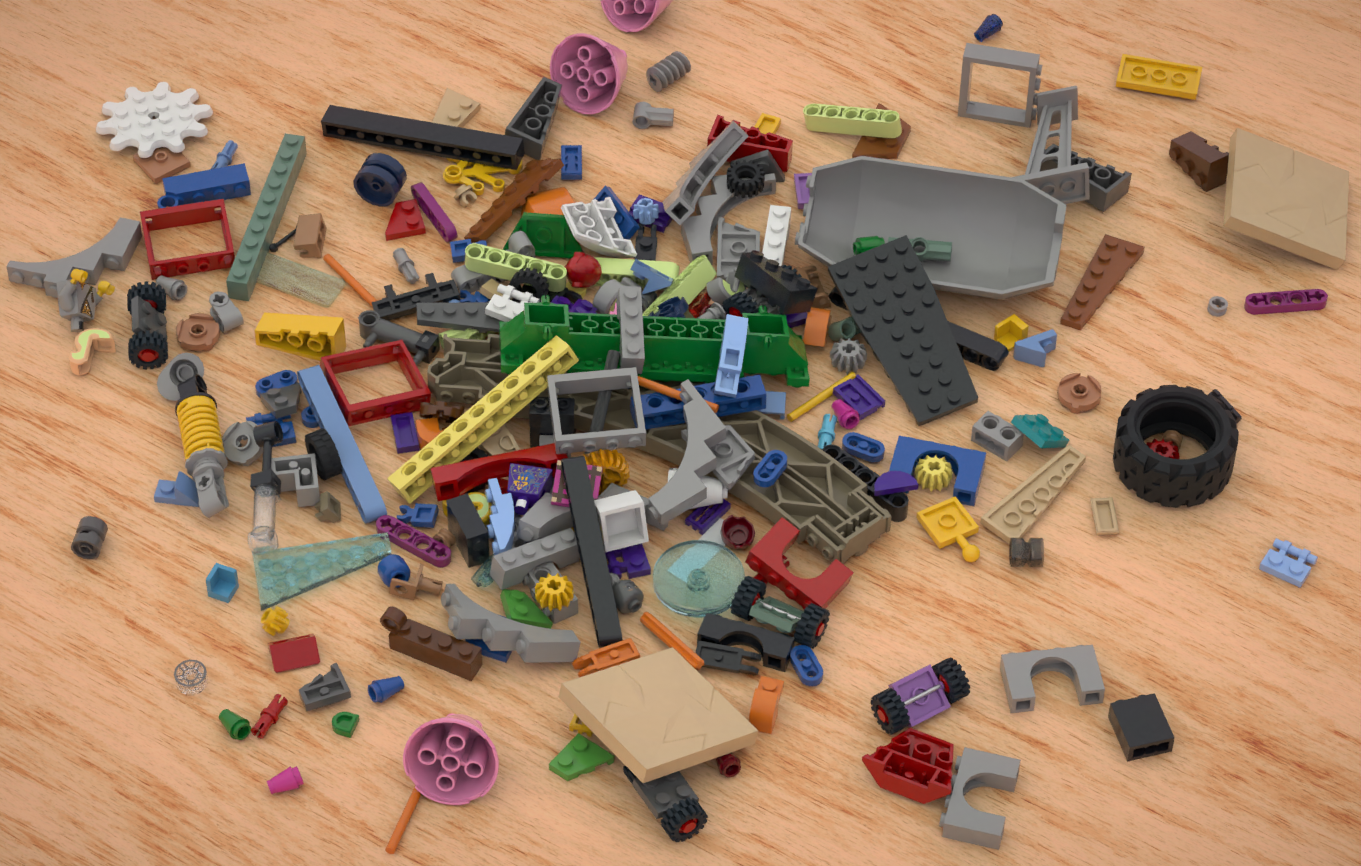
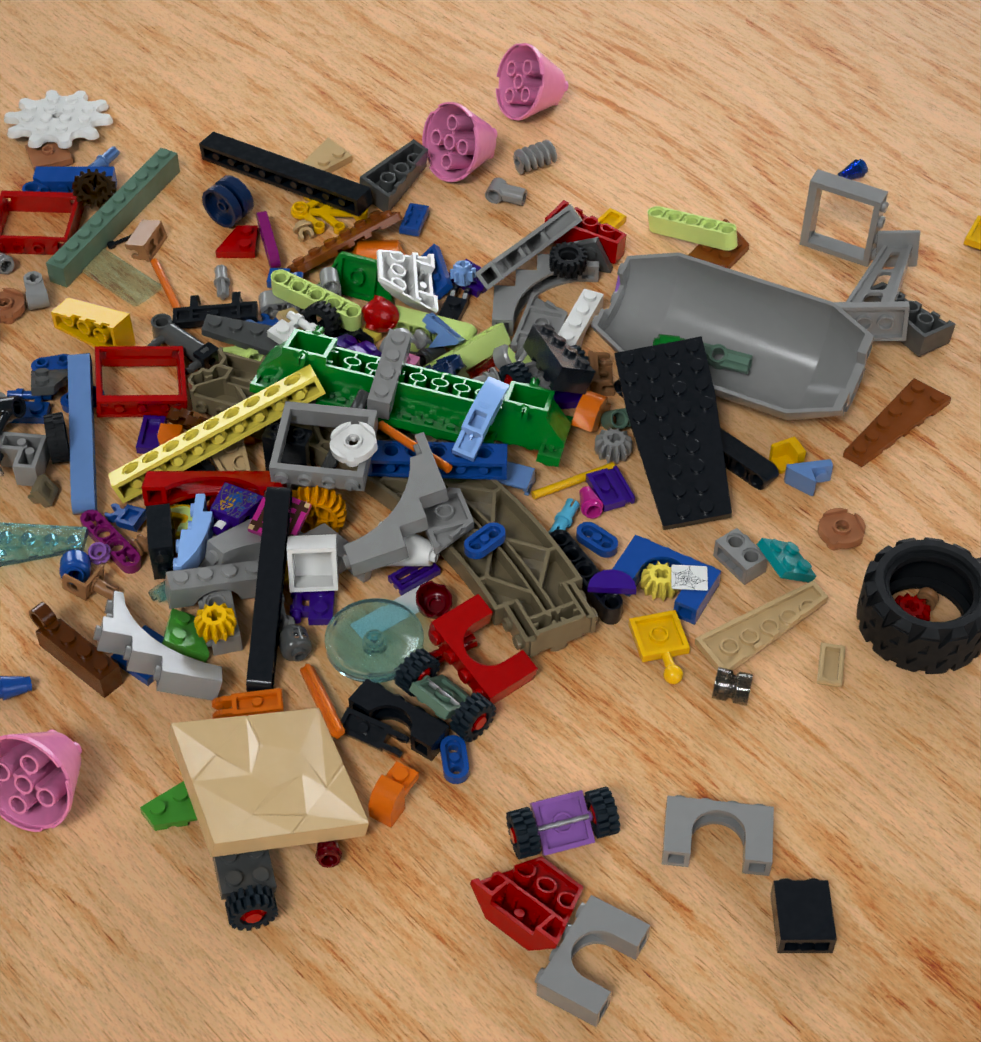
camera: 15 degrees right, 0 degrees up
(237, 191) = (84, 185): none -> dark brown gear
(411, 548) = (96, 548): none -> medium lavender plate
(627, 413) = (357, 453): none -> white plate
(960, 464) = (689, 577): none -> white sticker

